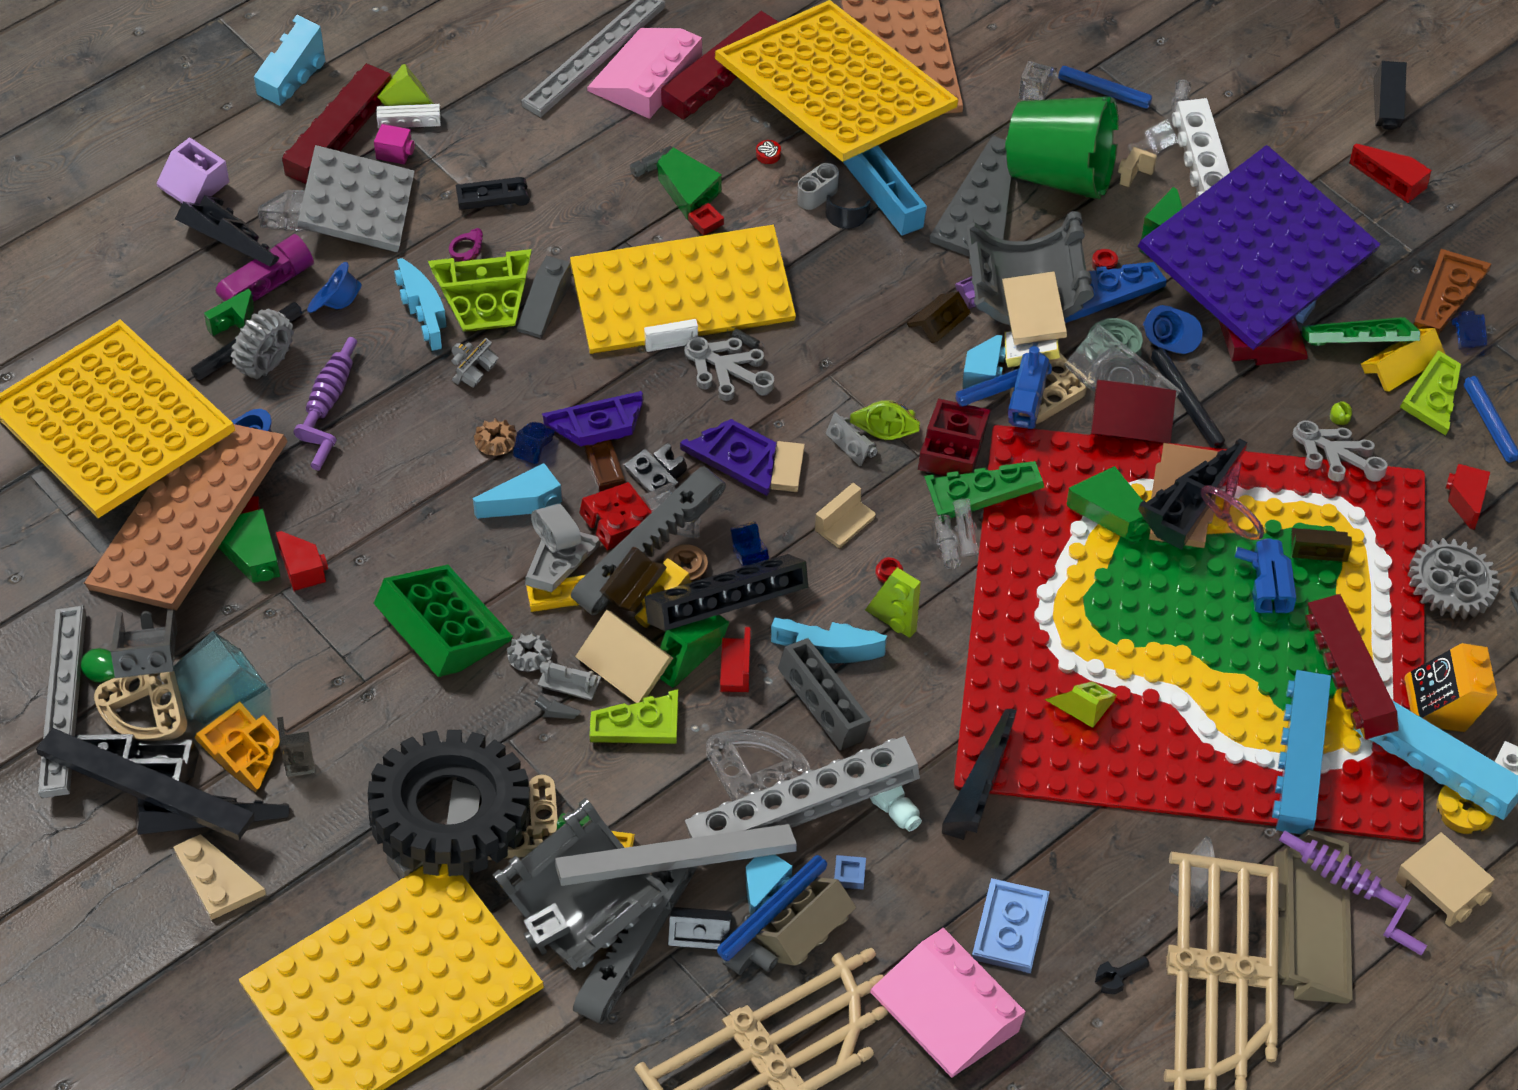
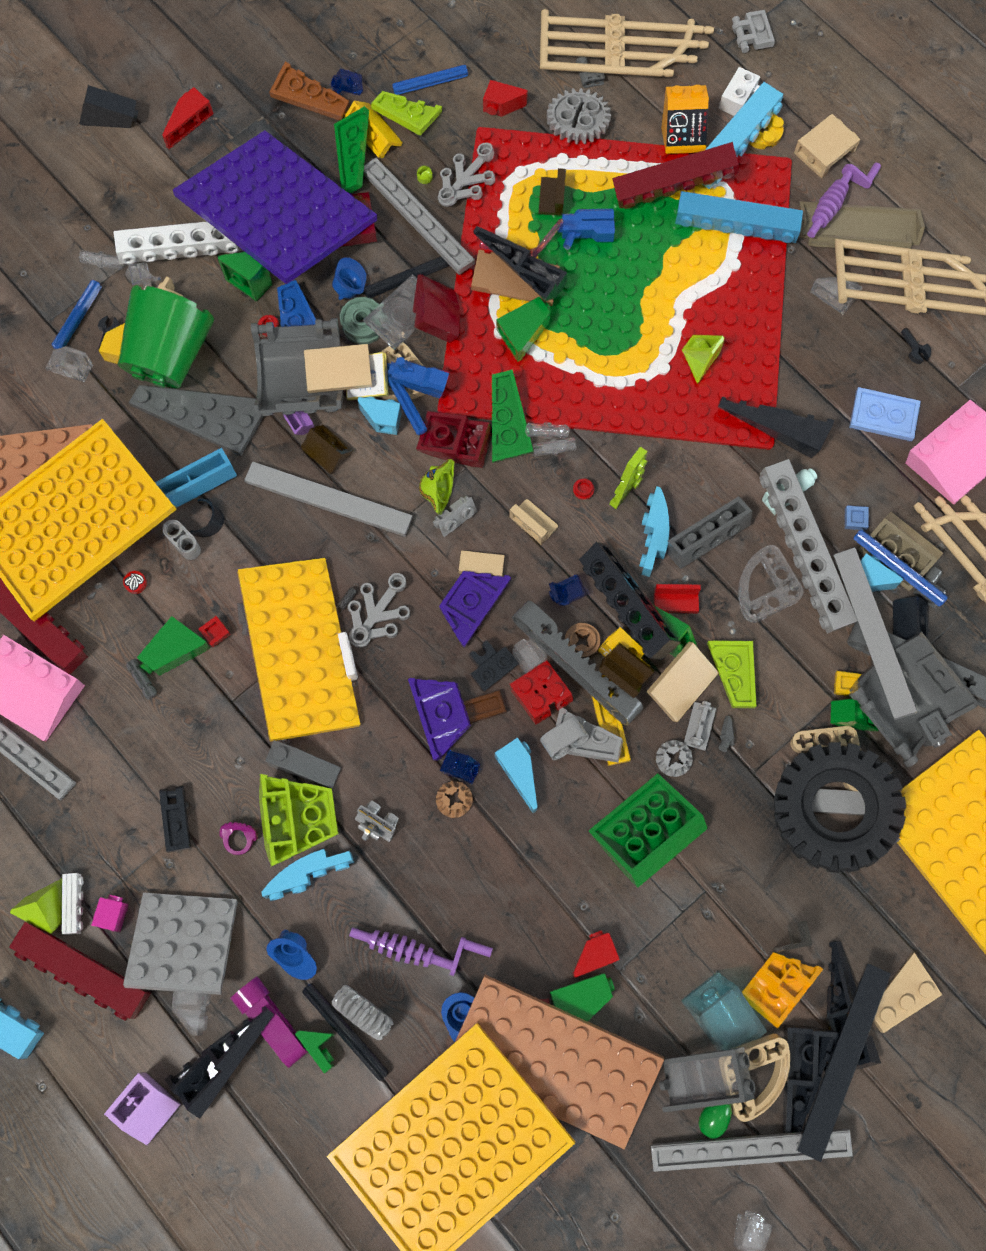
camera: 90 degrees left, 20 degrees up
(872, 321) = (329, 499): none -> light grey tile
(1274, 400) = (418, 216): none -> light grey tile

